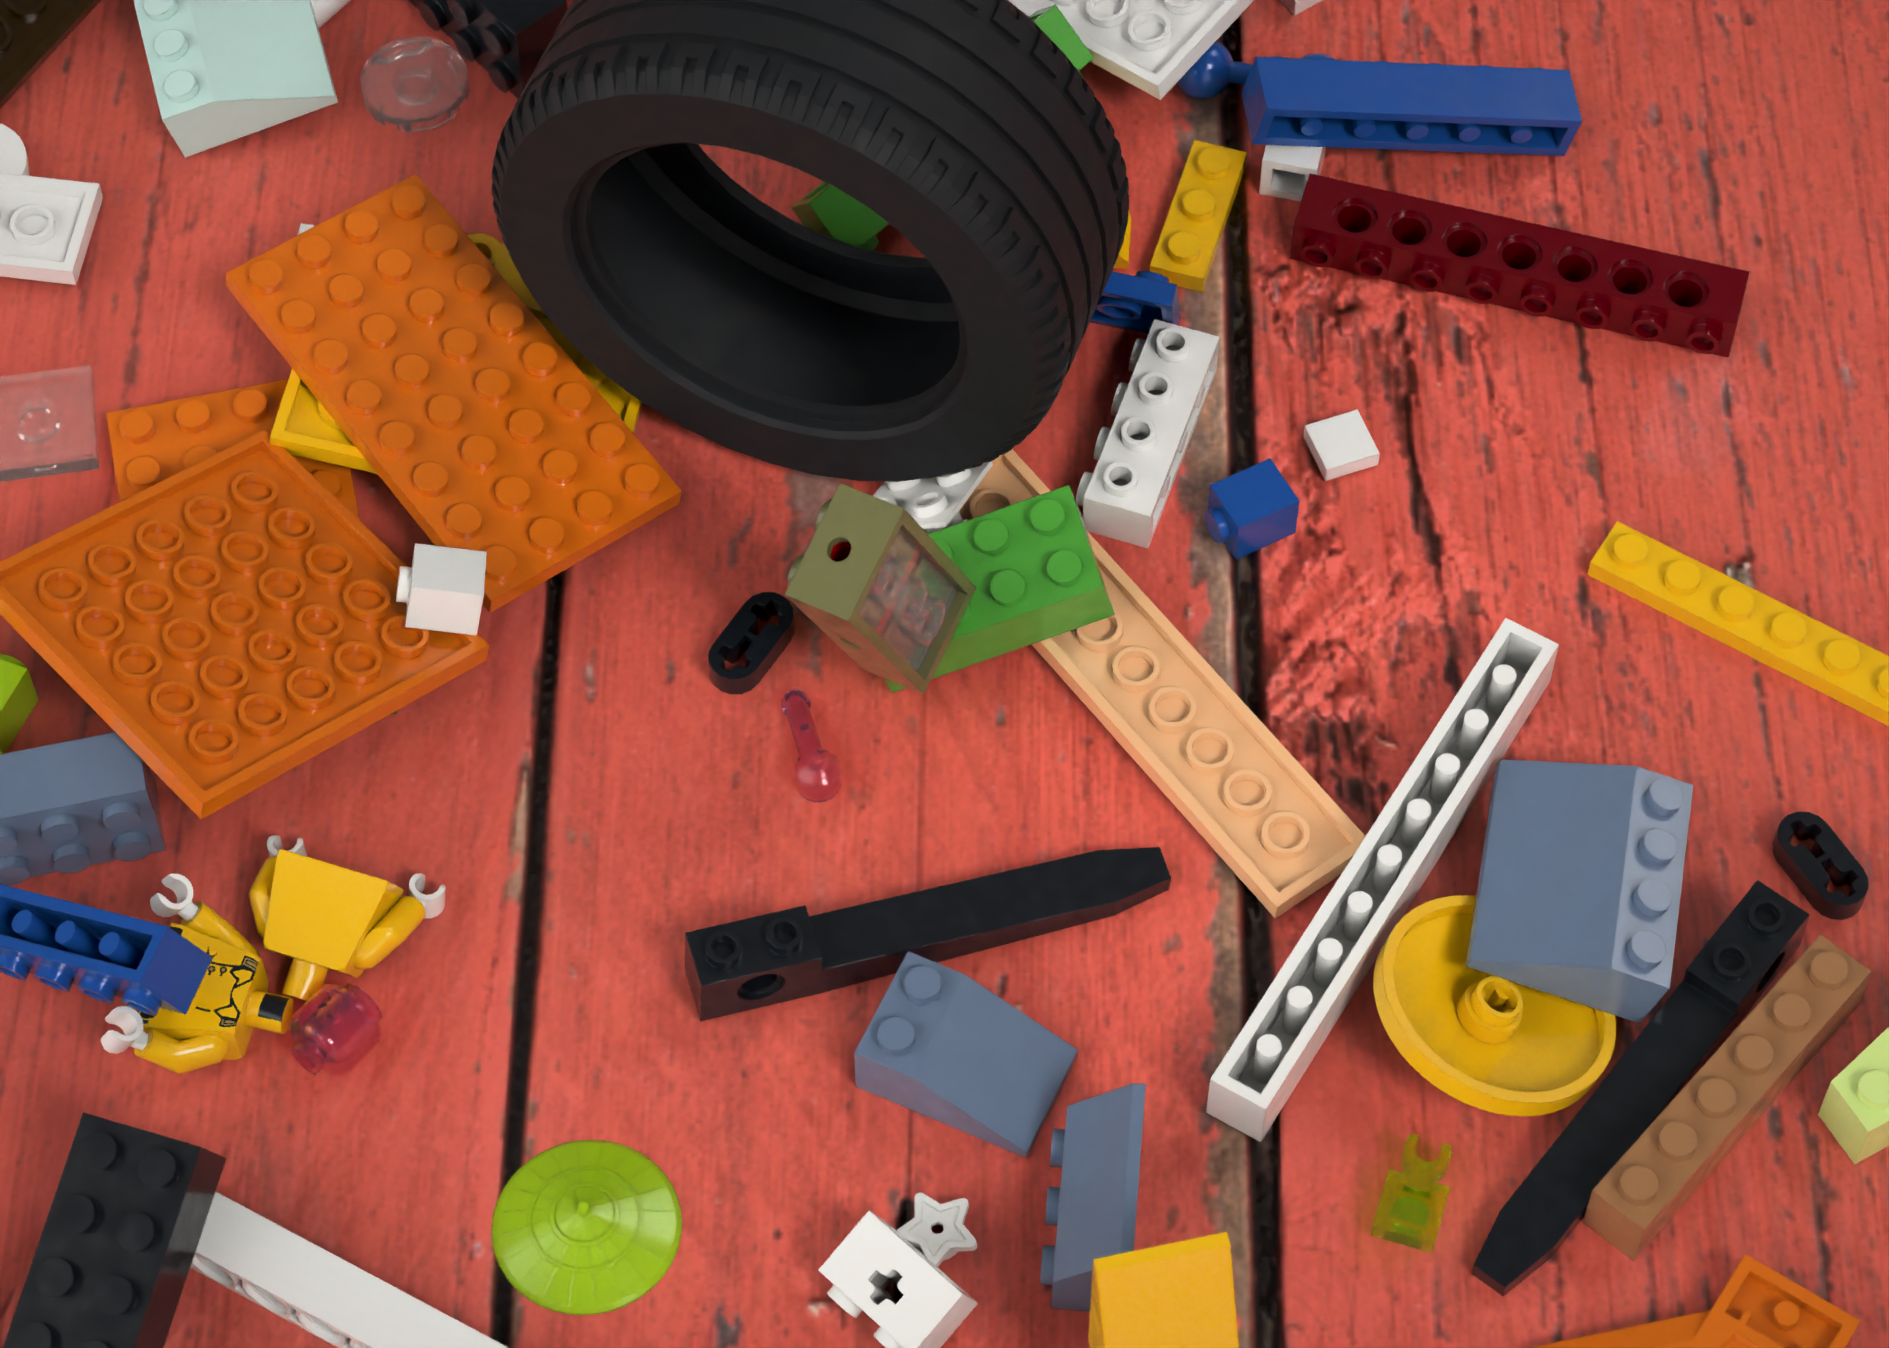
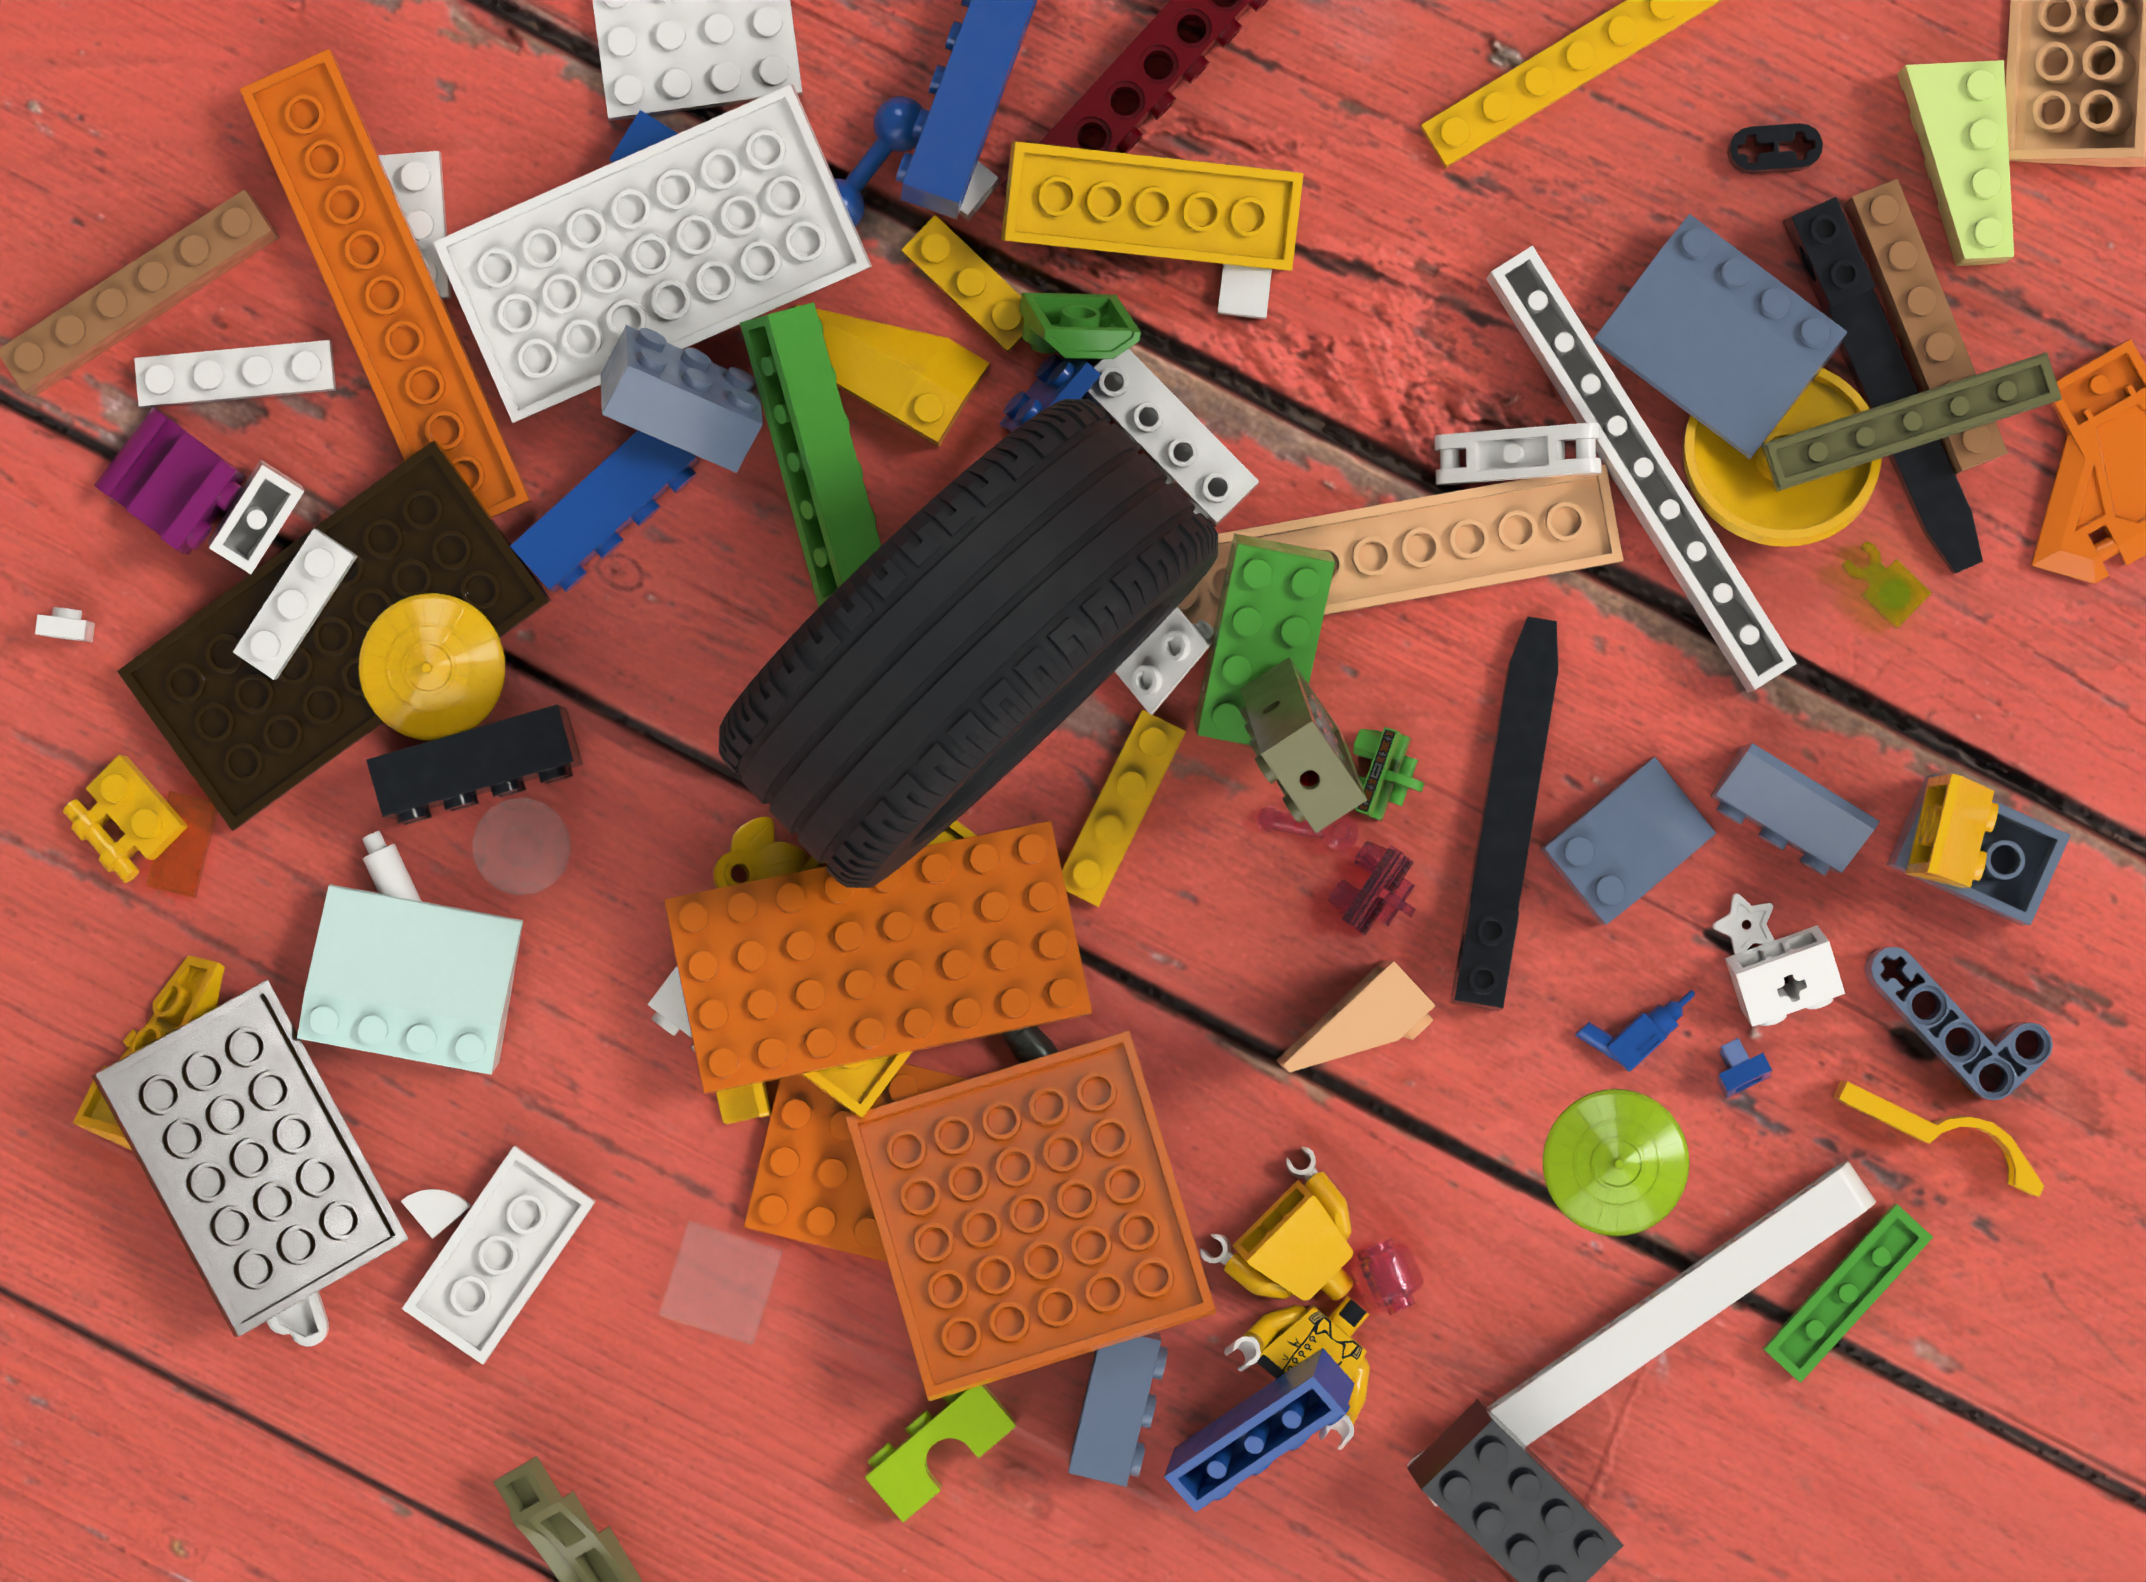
camera: 60 degrees left, 30 degrees up
(250, 359) = (744, 1103): none -> yellow panel
(443, 589) = (1079, 1047): white brick -> none
(608, 822) = (1371, 1015): none -> light nougat slope
(706, 563) = (1121, 807): none -> yellow plate
(742, 636) = (1210, 819): black beam -> none
(747, 1174) = (1637, 1037): none -> blue piece
(761, 1296) = (1742, 1070): none -> blue tile
(772, 829) = (1382, 893): none -> clear pink hips
(904, 778) = (1389, 772): none -> bright green hips
(1211, 290) = (1077, 325): none -> bright green slope
(1251, 509) = (1276, 396): blue brick -> none
(1331, 740) = (1517, 453): none -> white plate
(1375, 306) = (1151, 206): none -> yellow plate
(1615, 1100) = (1911, 422): none -> olive tile

